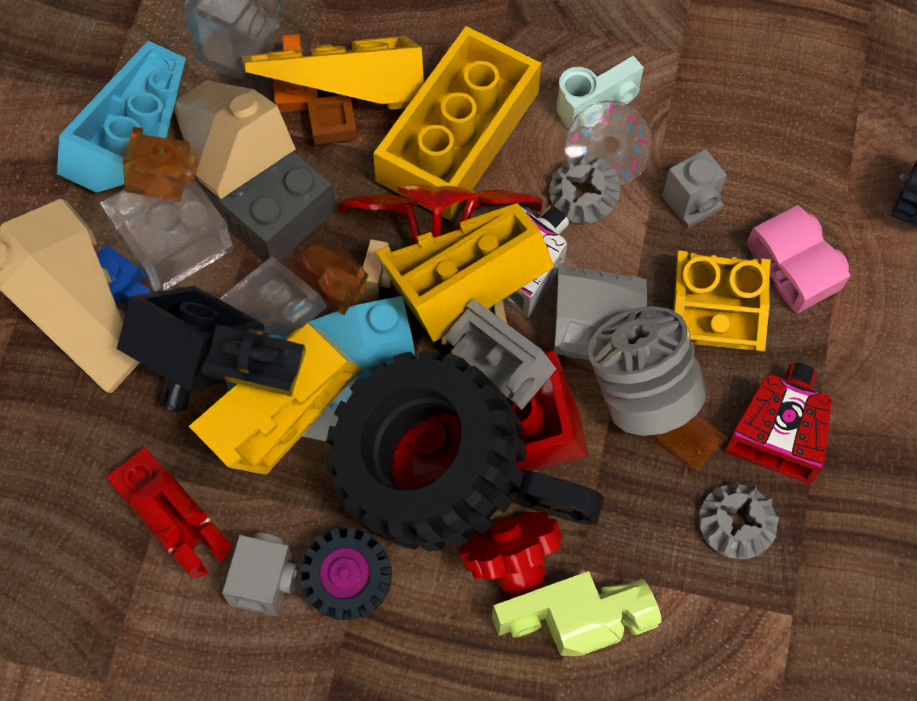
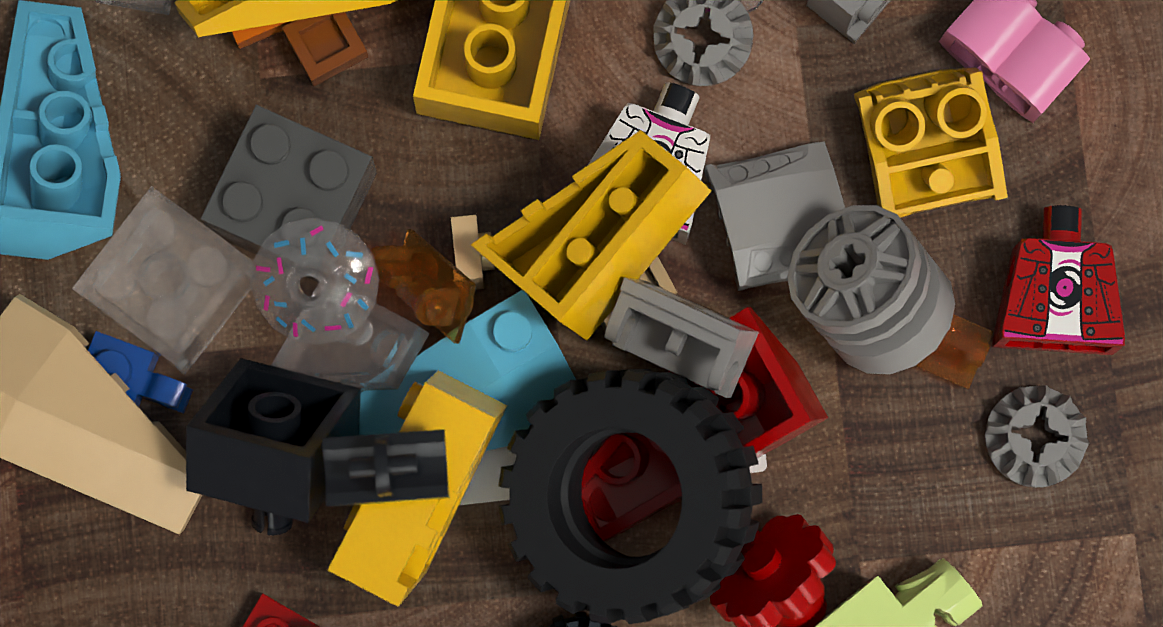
camera: 20 degrees left, 15 degrees up
(157, 166) = (137, 239): clear orange brick -> none
(231, 134) = (201, 129): tan wedge -> none
(280, 256) = (331, 256): none -> clear dish
(437, 200) = (528, 168): red plant -> none
(558, 498) = (810, 485): black beam -> none

